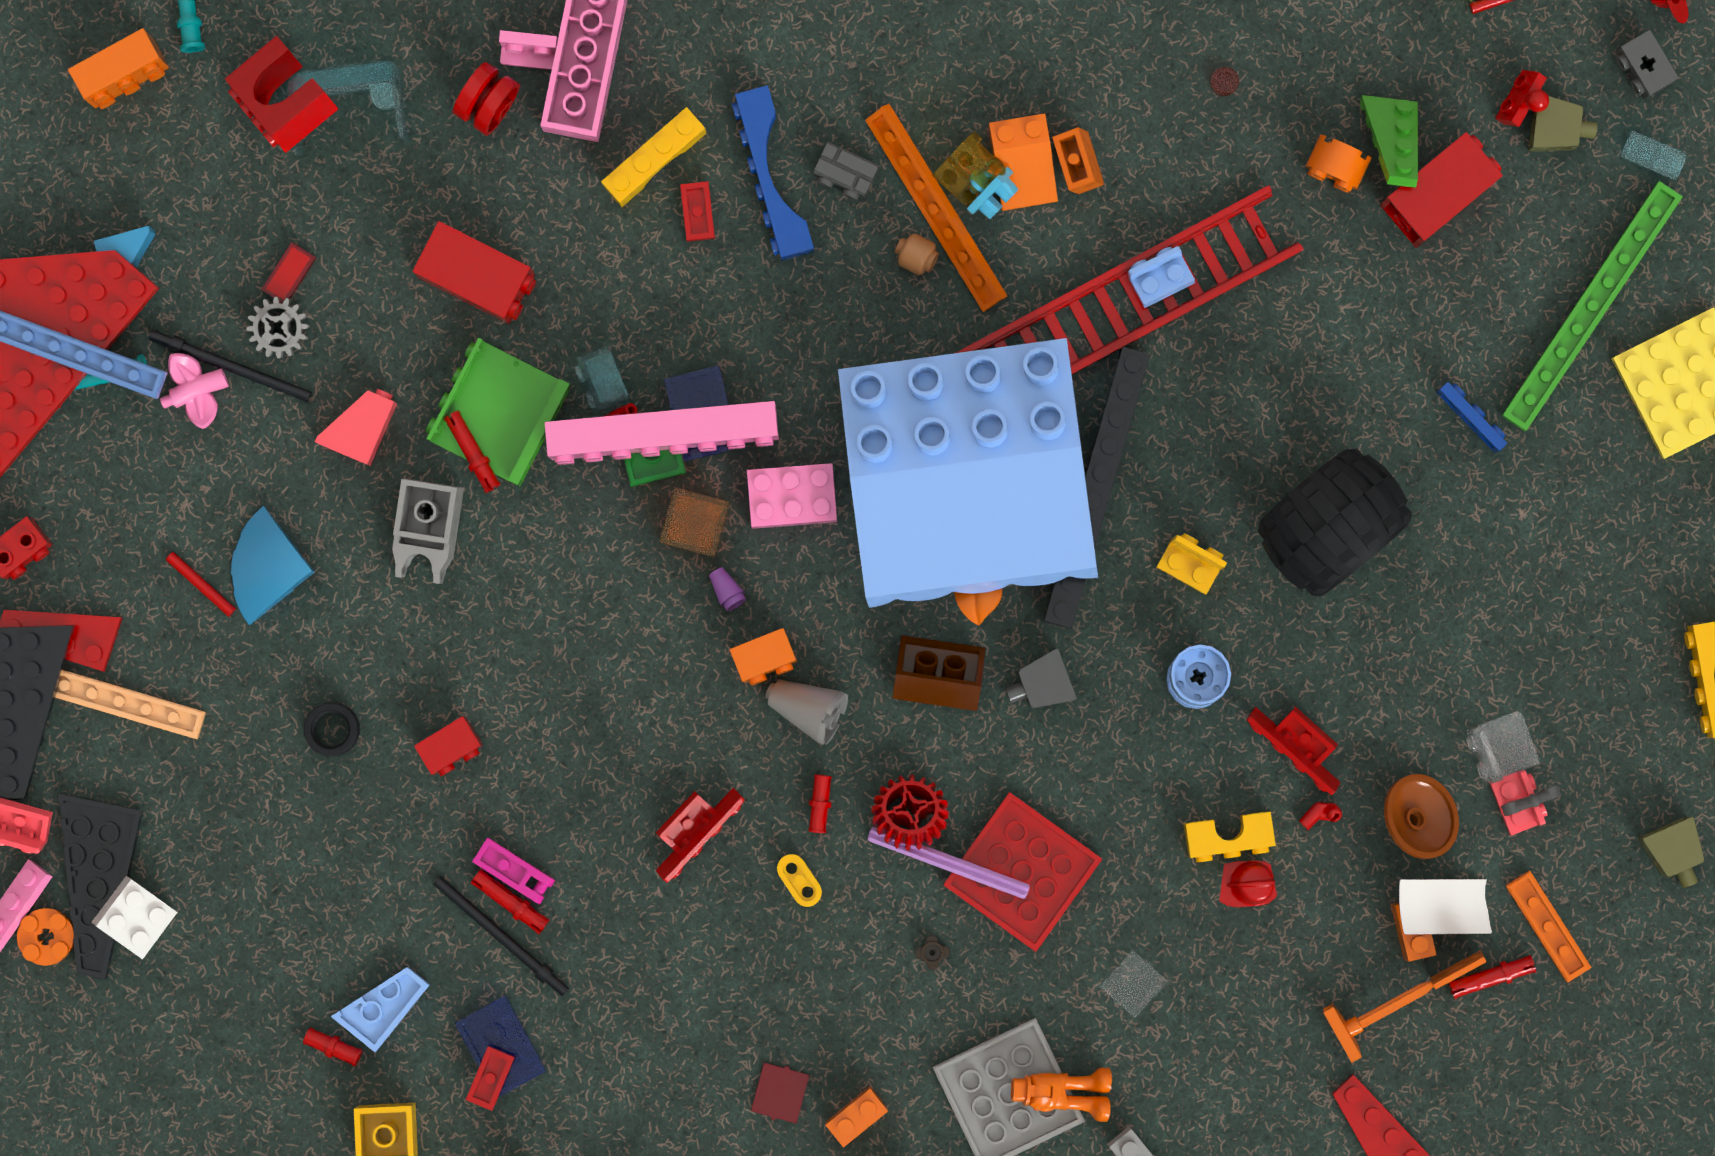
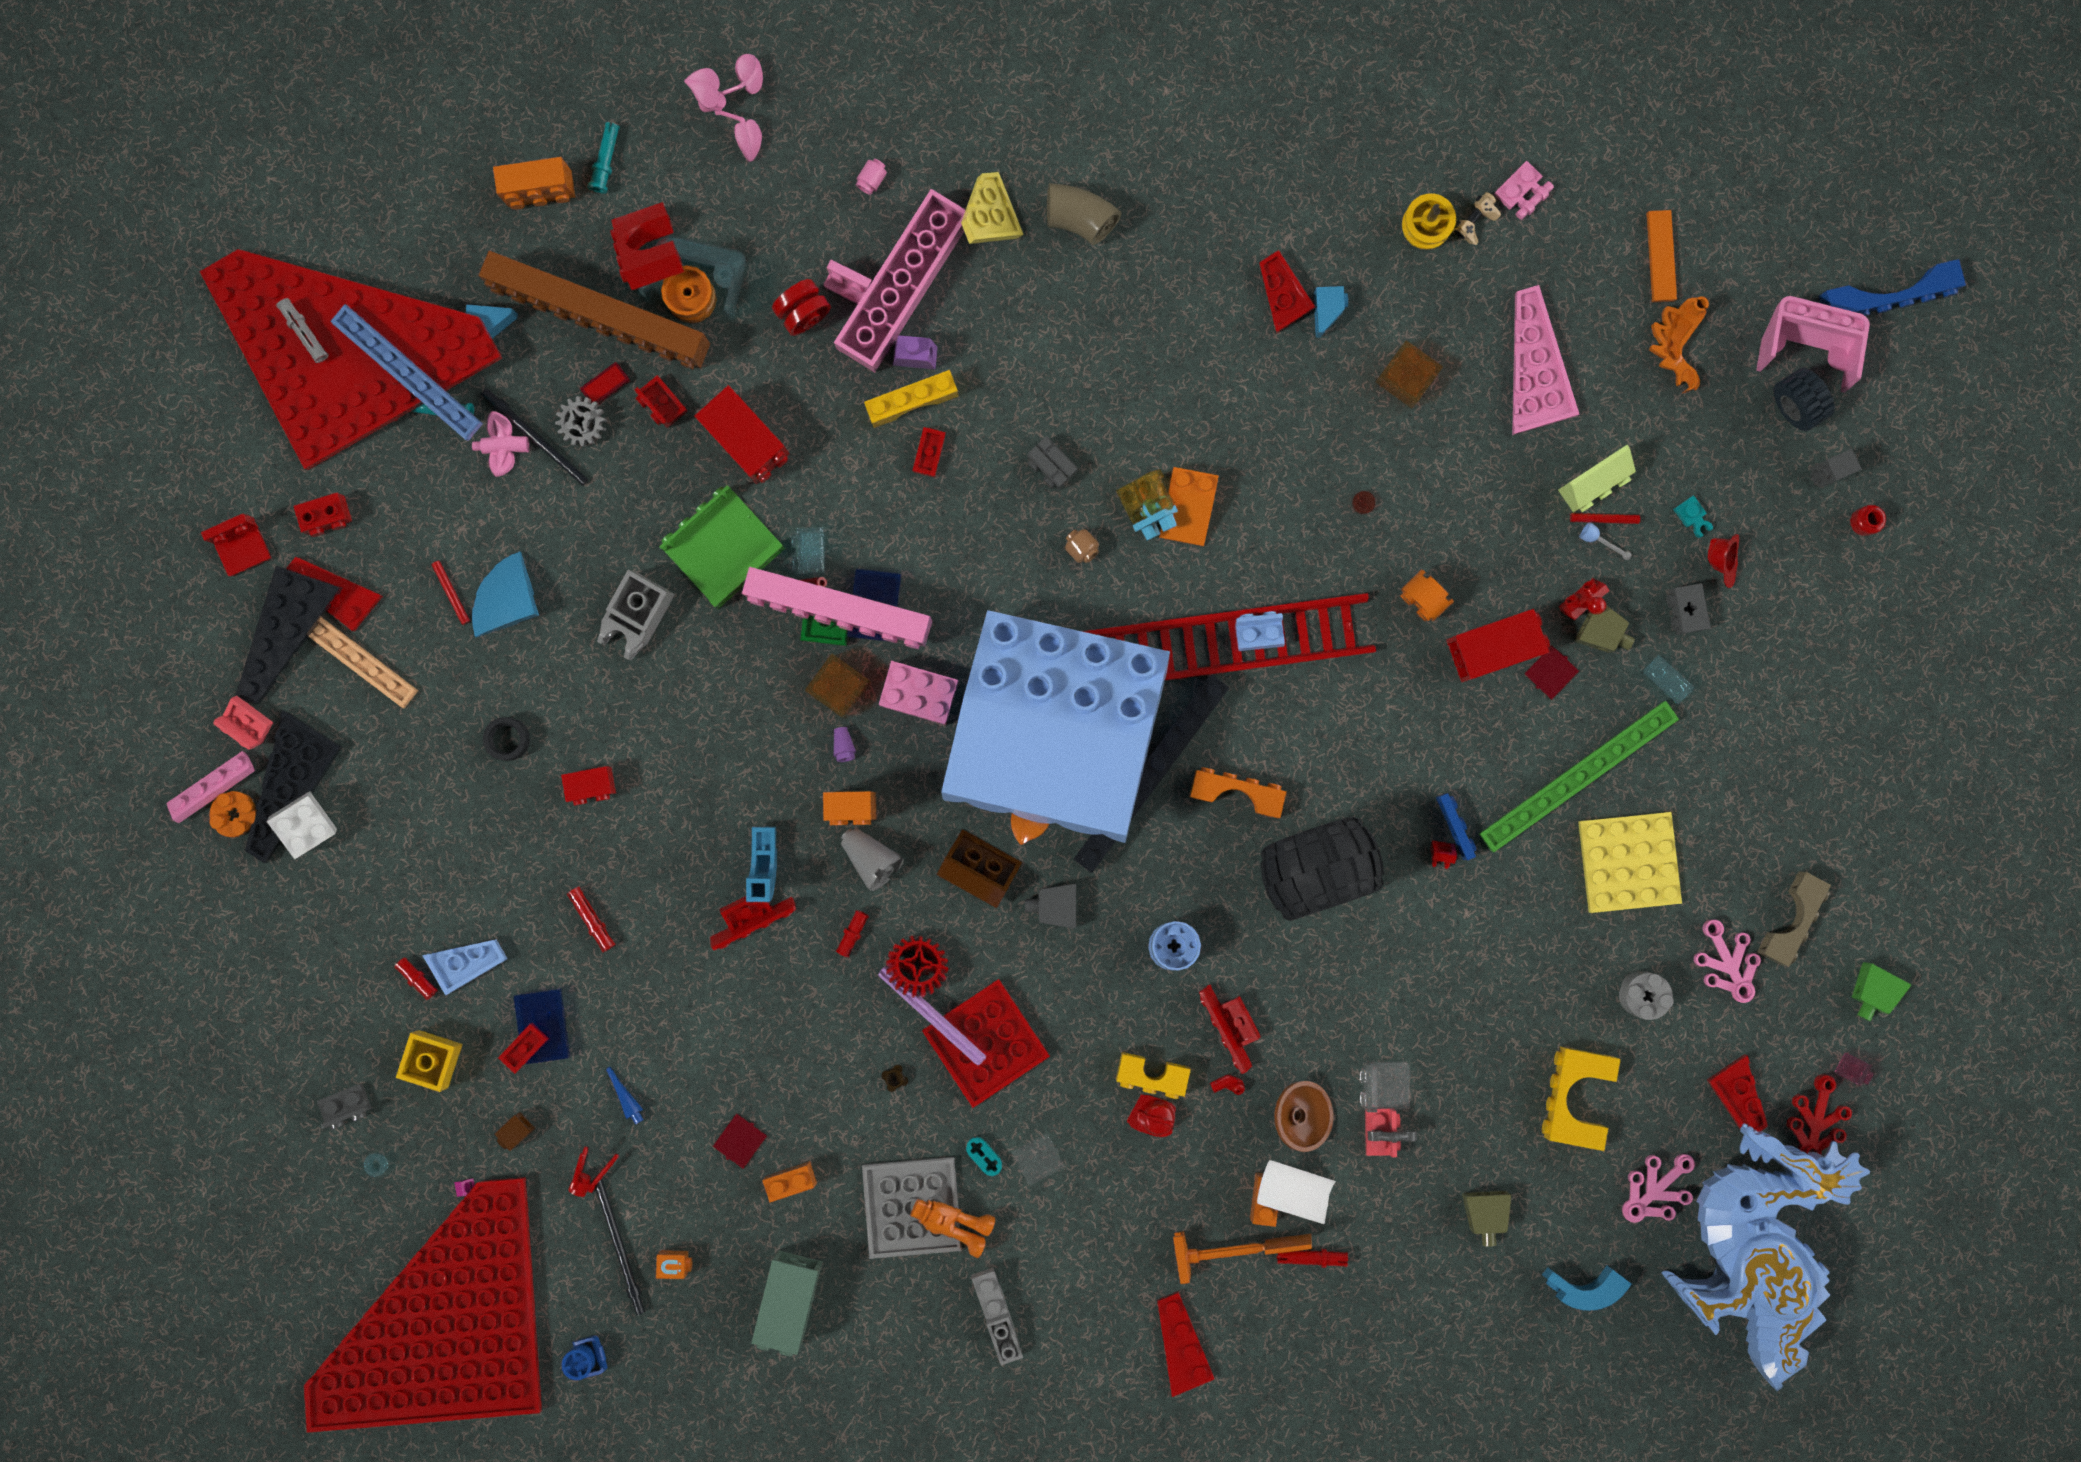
camera: 20 degrees right, 0 degrees up
(246, 191) = (594, 310): none -> dark orange brick
(360, 144) = (693, 307): none -> orange wheel
(360, 427) = (614, 520): coral slope -> none
(362, 269) = (661, 401): none -> red bracket
(478, 462) = (691, 573): red pin -> none
(512, 870) = (601, 896): dark pink plate -> none
(542, 972) = (595, 982): black bar -> none
(636, 102) = (915, 352): none -> medium lavender torso
(638, 1101) = (629, 1104): none -> blue piece
(686, 761) = (762, 876): none -> dark azure arch
(789, 229) = (1001, 398): blue arch -> none
(801, 878) = (814, 985): yellow plate -> none
(936, 207) = (1109, 516): orange plate -> none
(1066, 1009) = (988, 1151): none -> teal beam
(1078, 160) = (1230, 520): orange brick -> none
(1191, 563) = (1201, 857): yellow bracket -> none
(1240, 468) = (1266, 800): none -> orange arch
(1395, 136) = (1477, 592): bright green wing -> none
(1468, 453) = (1443, 852): none -> red tile
(1501, 19) = (1591, 533): none -> hinge
(1515, 197) = (1551, 672): none -> dark red piece
(1548, 926) = (1369, 1235): orange tile -> none

